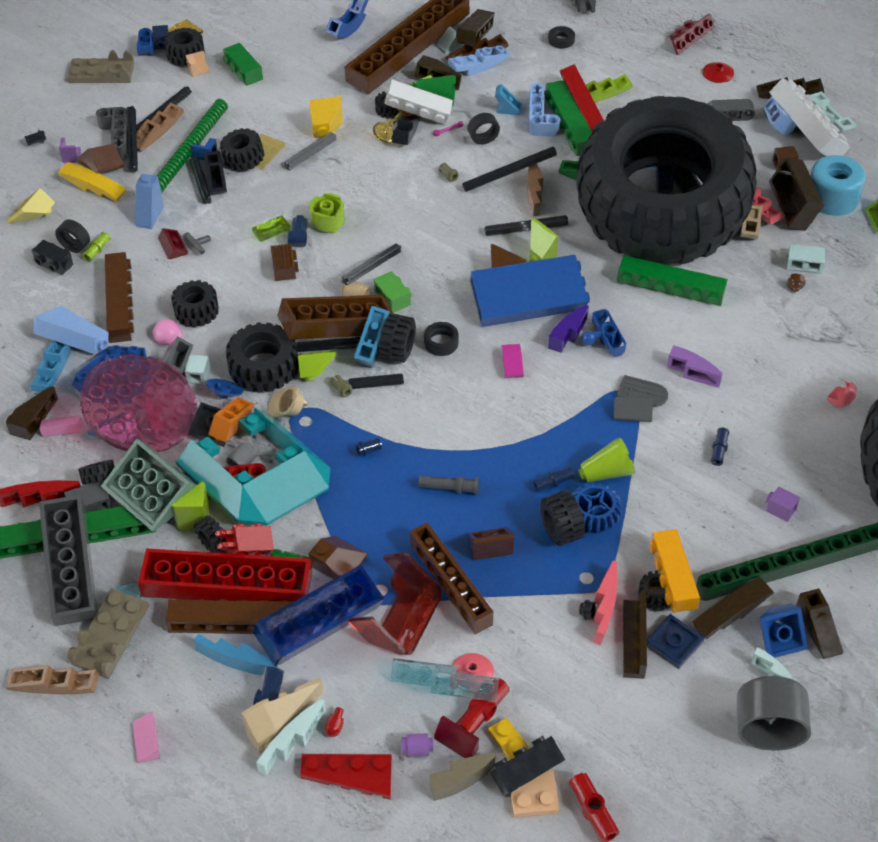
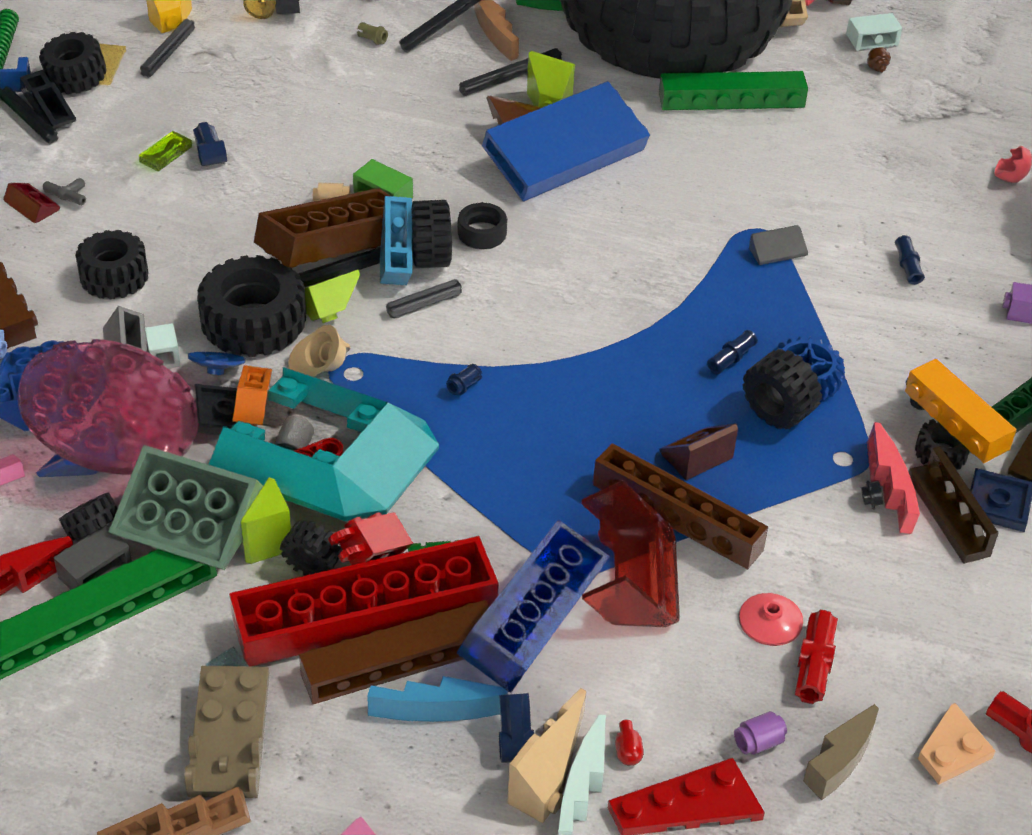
camera: 25 degrees left, 5 degrees down
(68, 560) = (117, 645): dark grey brick -> none
(166, 331) = (86, 311): bright pink hair -> none
(283, 262) = (210, 185): reddish brown brick -> none
(327, 213) = (239, 112): lime brick -> none
(335, 556) = (506, 531): slope -> none
(344, 389) = (385, 317): olive pin -> none
(371, 264) = (337, 158): black axle -> none
(445, 679) = (751, 634): clear light blue bracket -> none
(456, 738) = (807, 706): dark red slope -> none
(459, 485) = (614, 392): dark grey pin -> none
(507, 737) = (875, 688): yellow plate -> none
(512, 361) = (592, 228): dark pink slope -> none
(527, 764) = (922, 708): black brick -> none
(568, 329) = (641, 175): dark purple slope -> none
(607, 332) = (693, 169): blue piece -> none
(607, 463) = (794, 310): lime cone -> none
(642, 388) = (764, 220): dark grey window -> none
(694, 367) = (822, 178): medium lavender slope -> none

